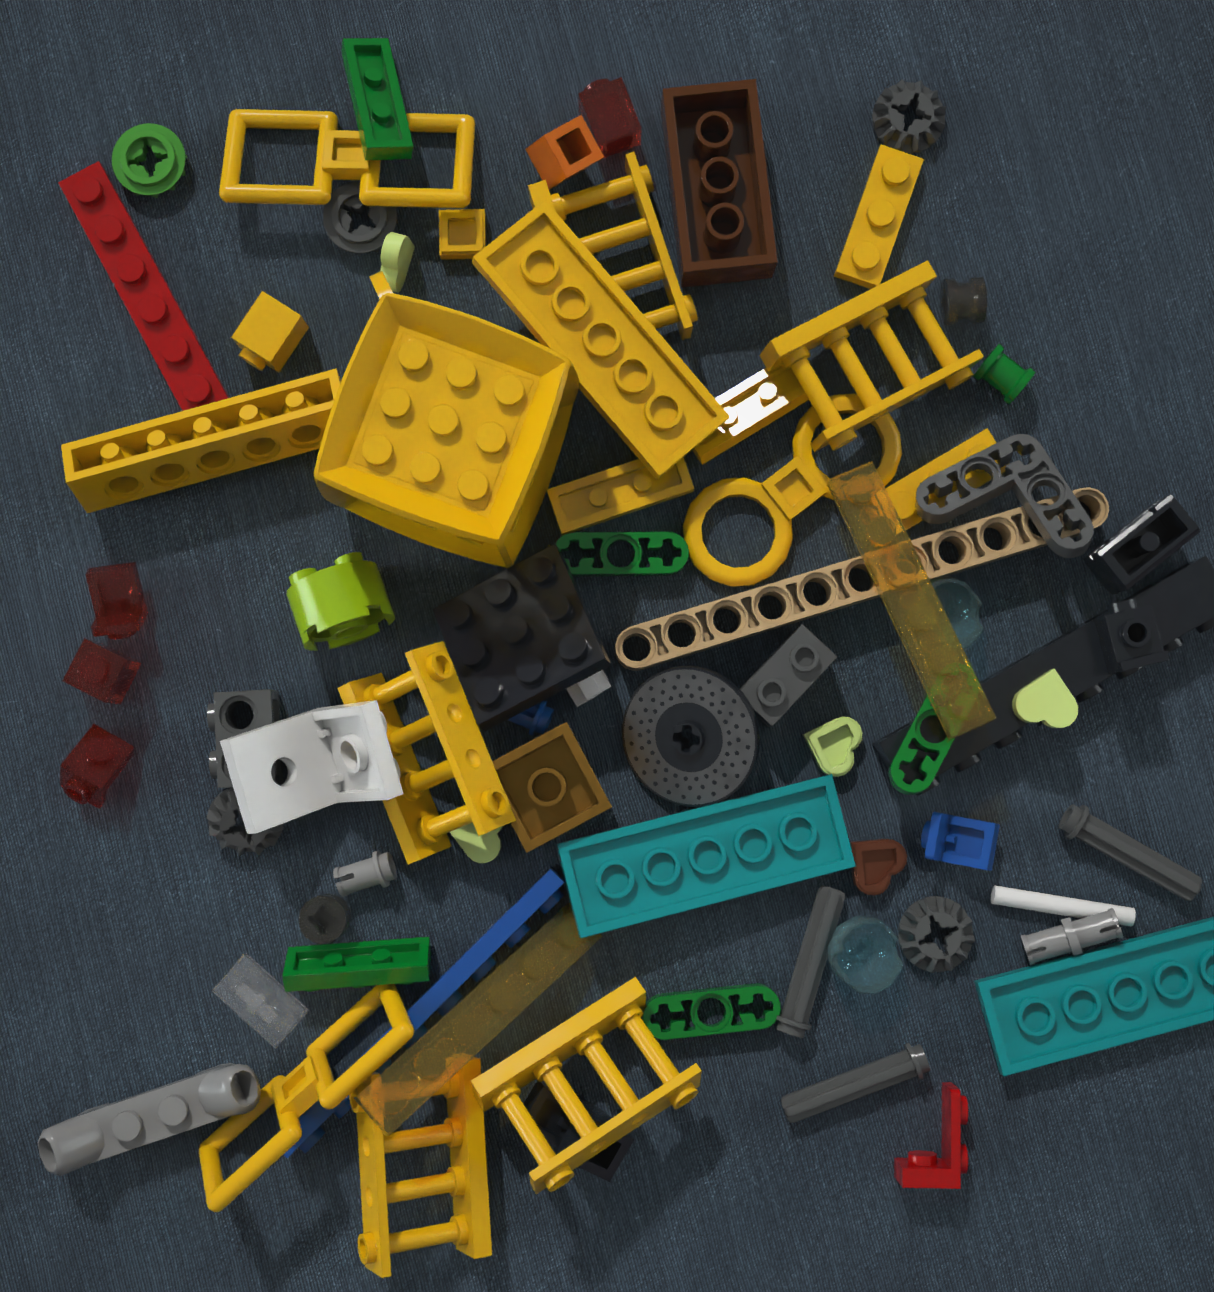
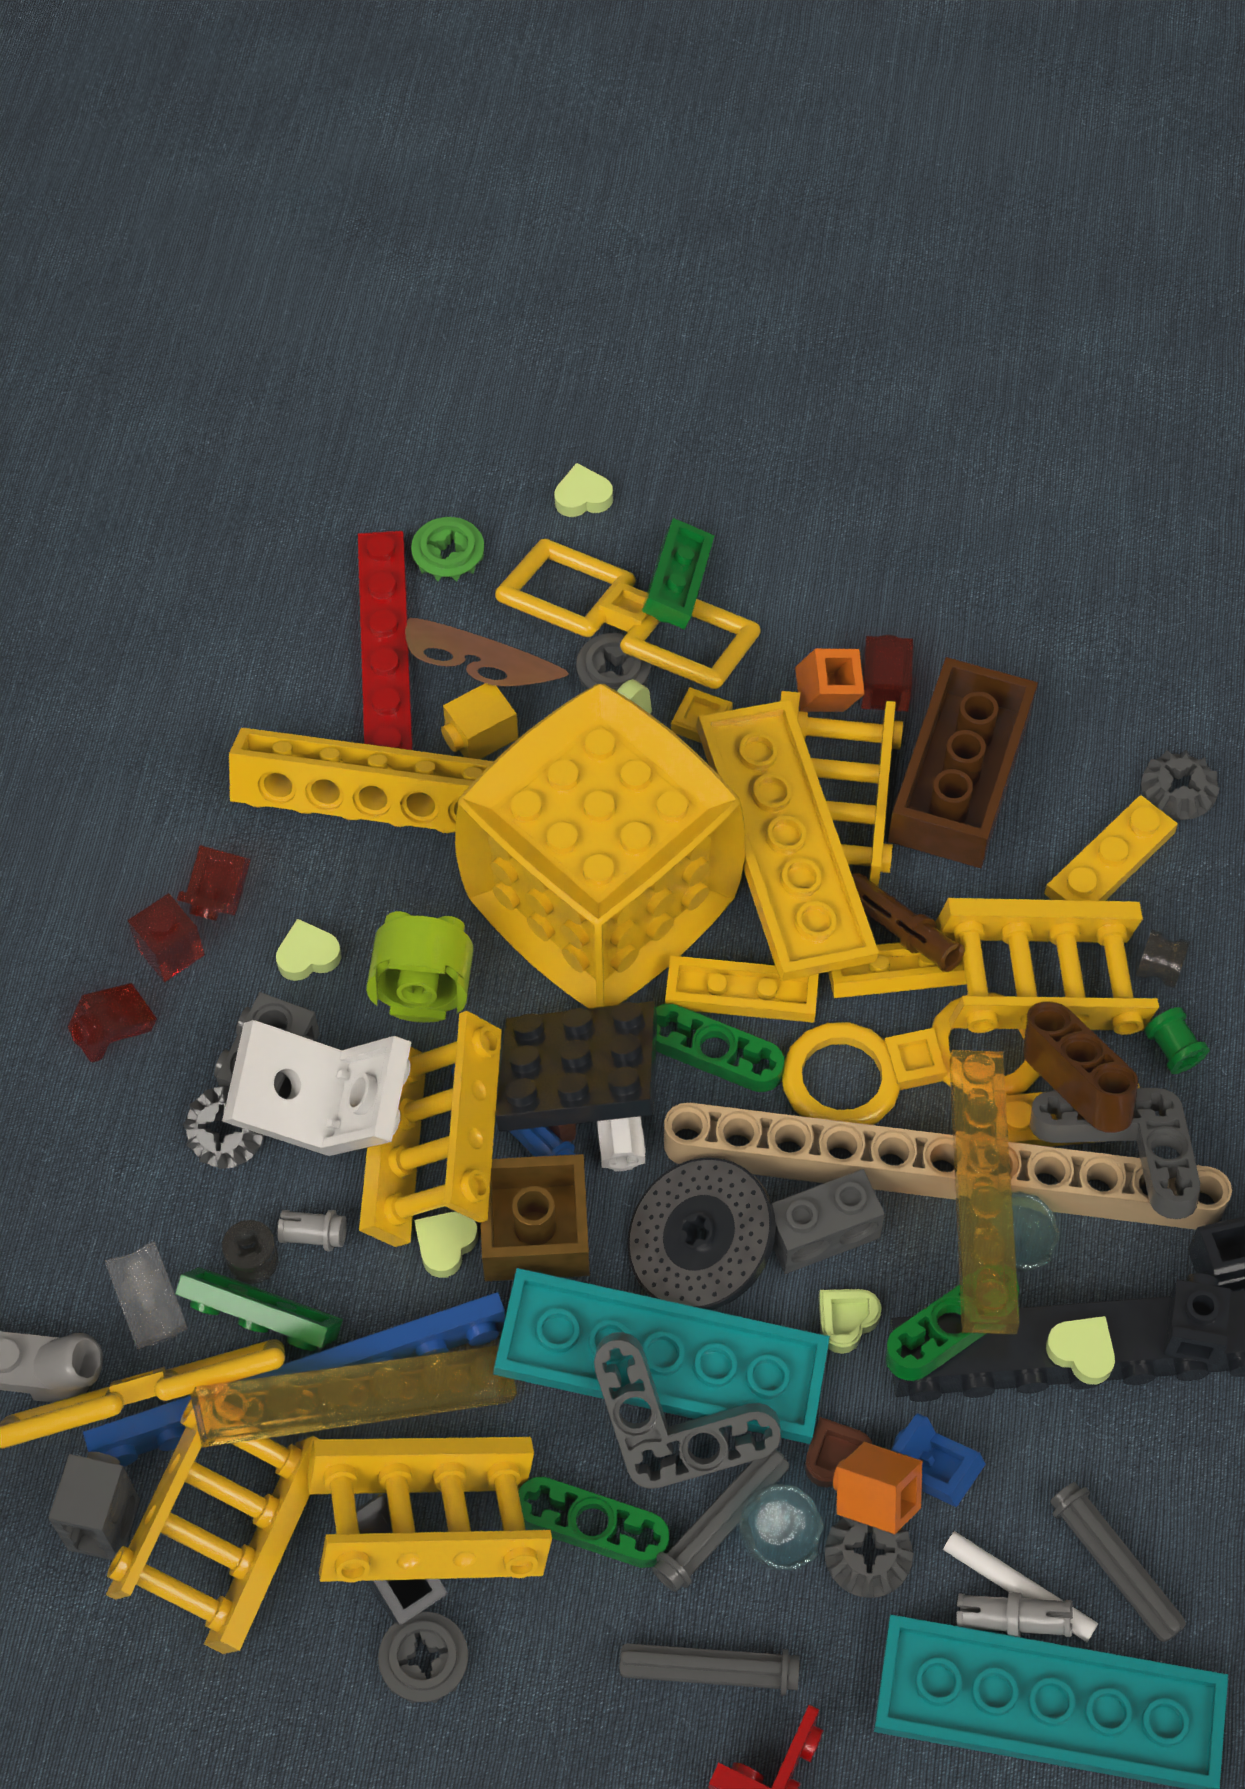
camera: 30 degrees right, 25 degrees down
(229, 622) = (307, 951): none -> yellowish green tile
(244, 42) = (582, 492): none -> yellowish green tile
(276, 256) = (518, 665): none -> nougat piece
(317, 1200) = (94, 1505): none -> dark grey brick
(630, 1203) = (439, 1636): none -> dark grey gear
(738, 926) = (657, 1436): none -> dark grey beam
(747, 375) = (904, 922): none -> reddish brown pin
(927, 889) = (878, 1487): none -> orange brick
(955, 469) = (1080, 1067): none -> reddish brown beam

